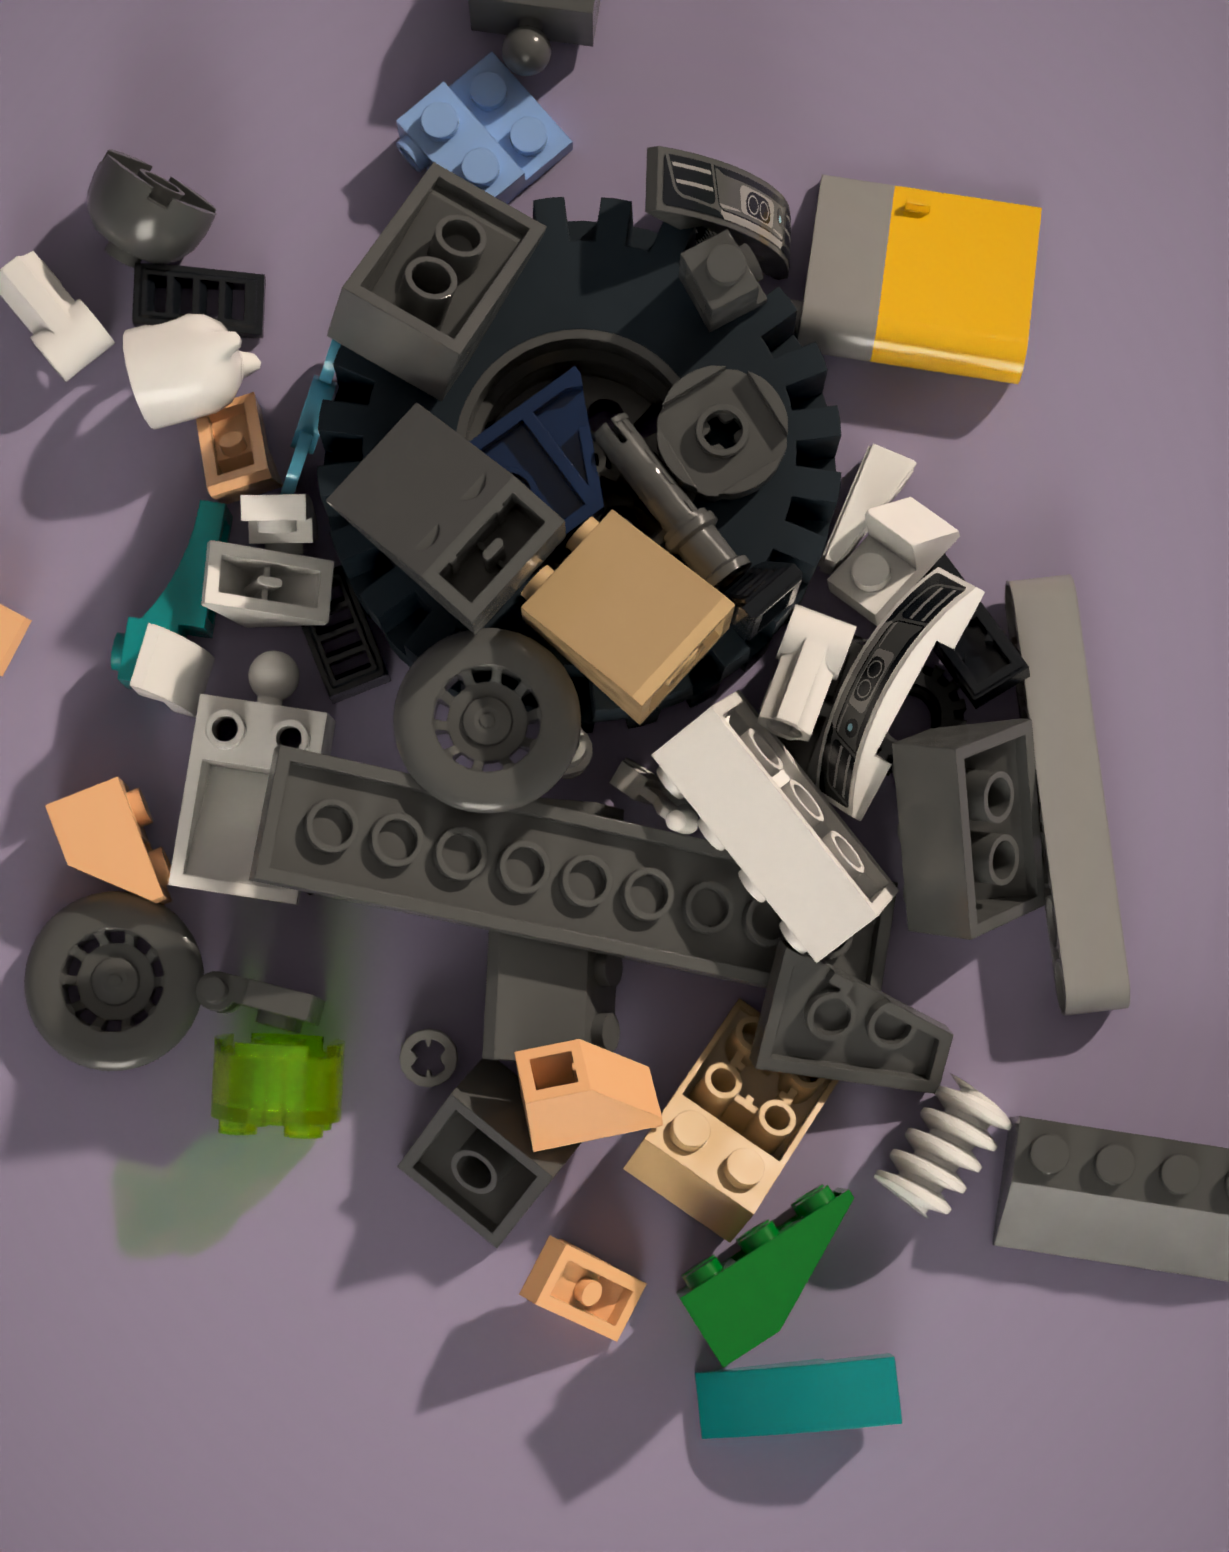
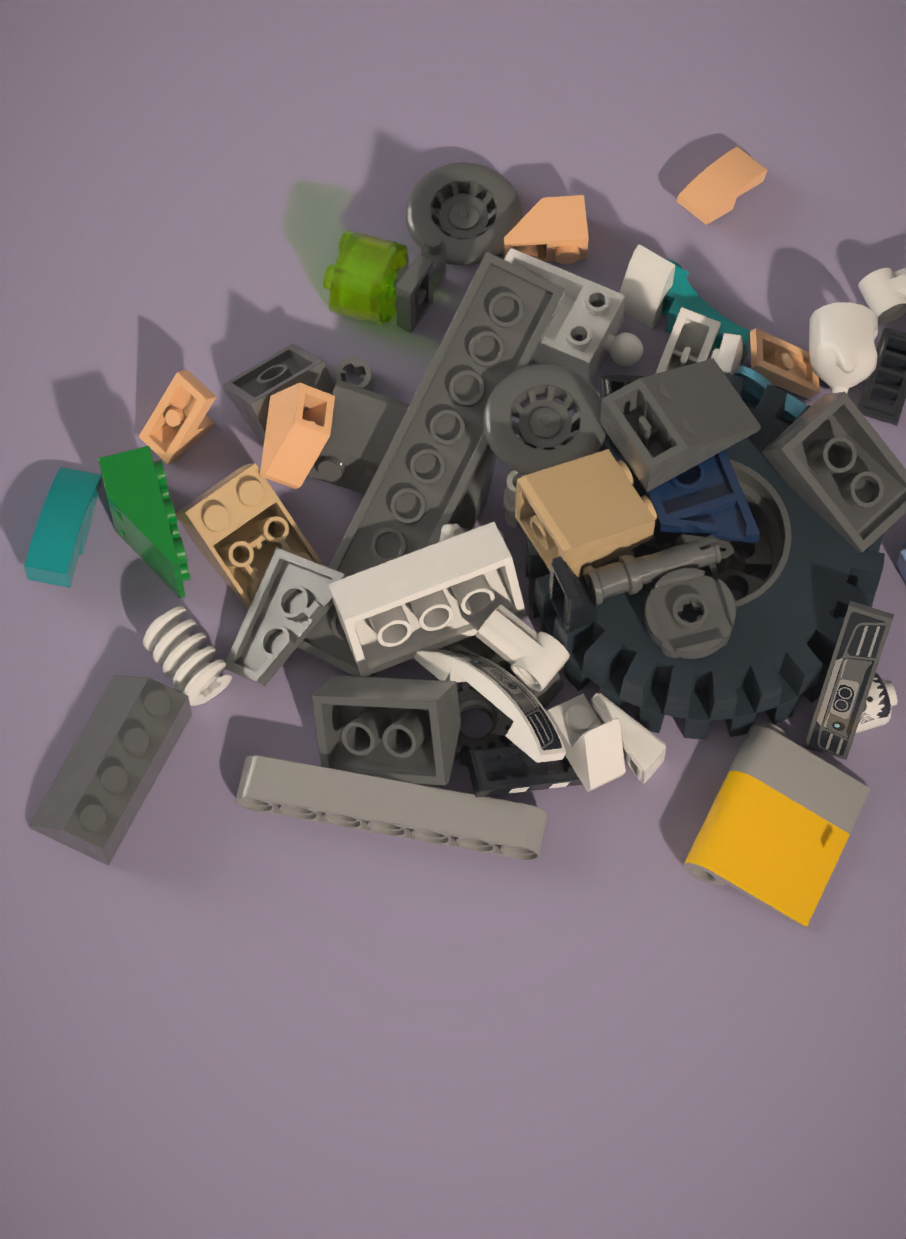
camera: 110 degrees right, 15 degrees down
(721, 279) = (792, 640): dark grey brick -> none

